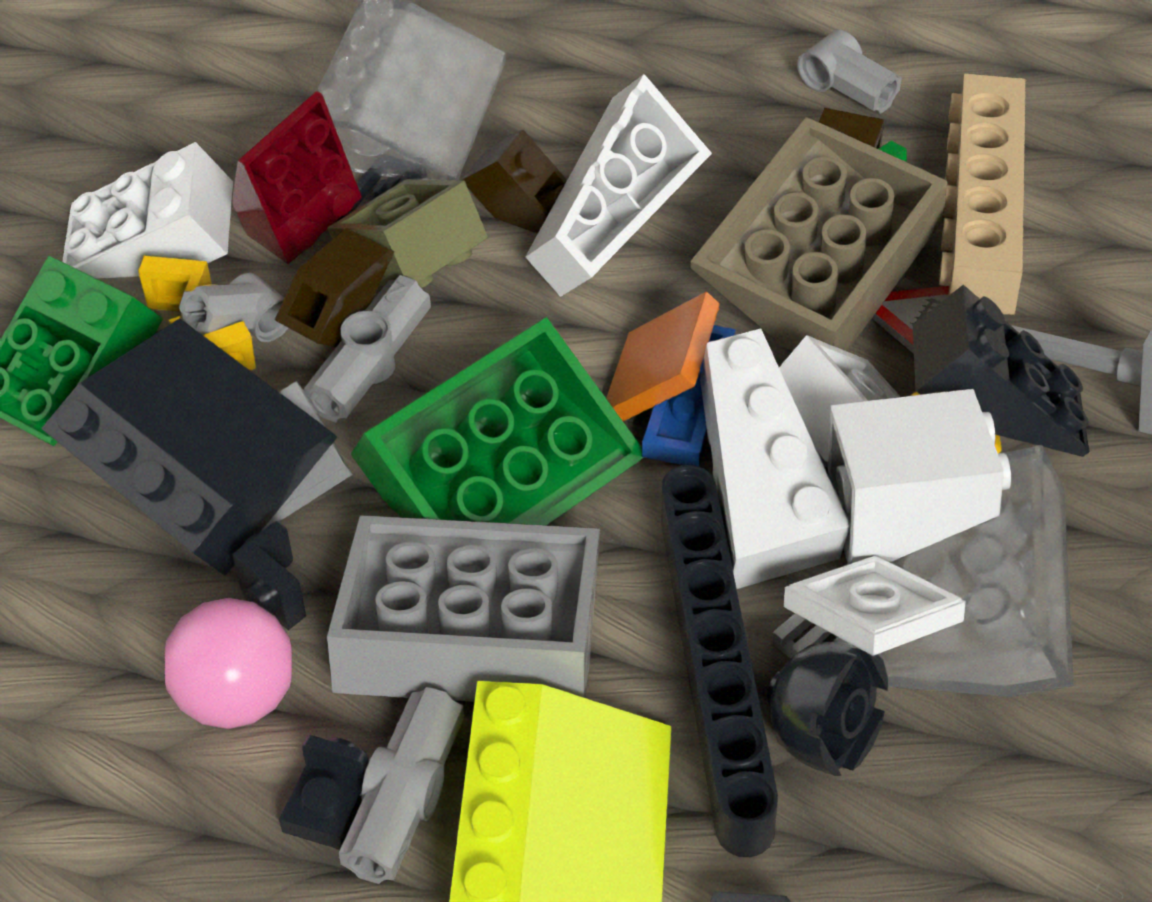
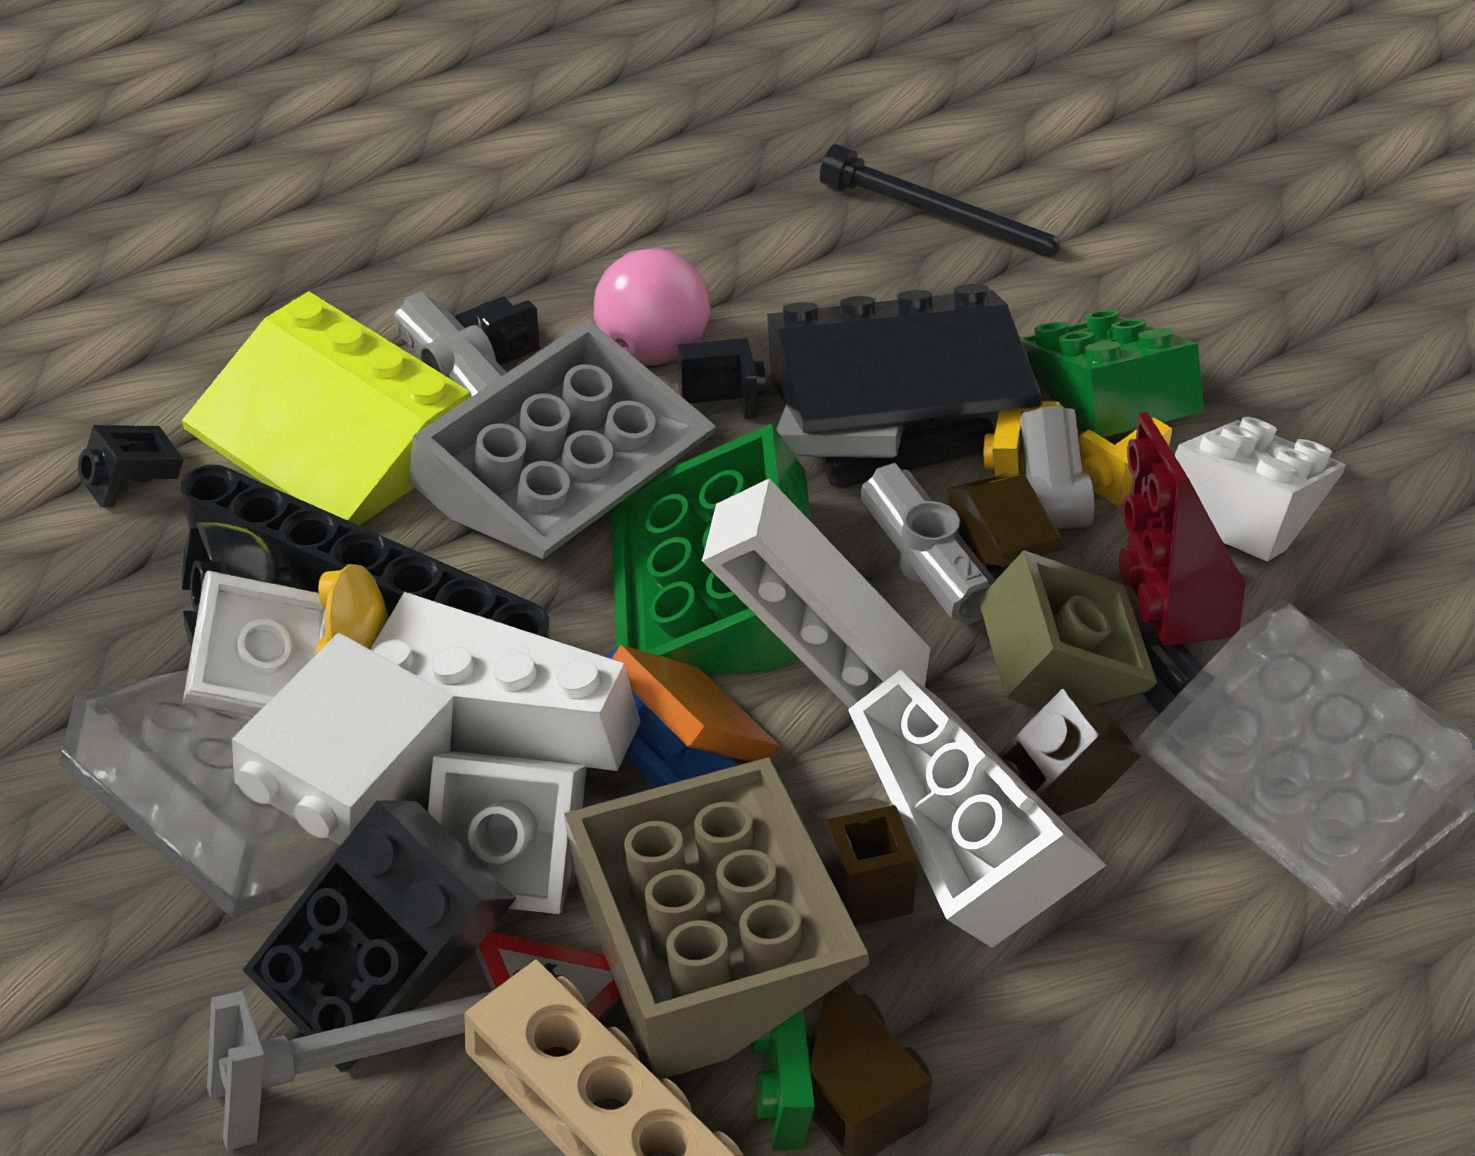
camera: 125 degrees right, 5 degrees down
(551, 282) = (810, 594): none -> white brick
(684, 223) = (866, 857): none -> dark brown slope
(791, 566) = (352, 605): none -> yellow dish

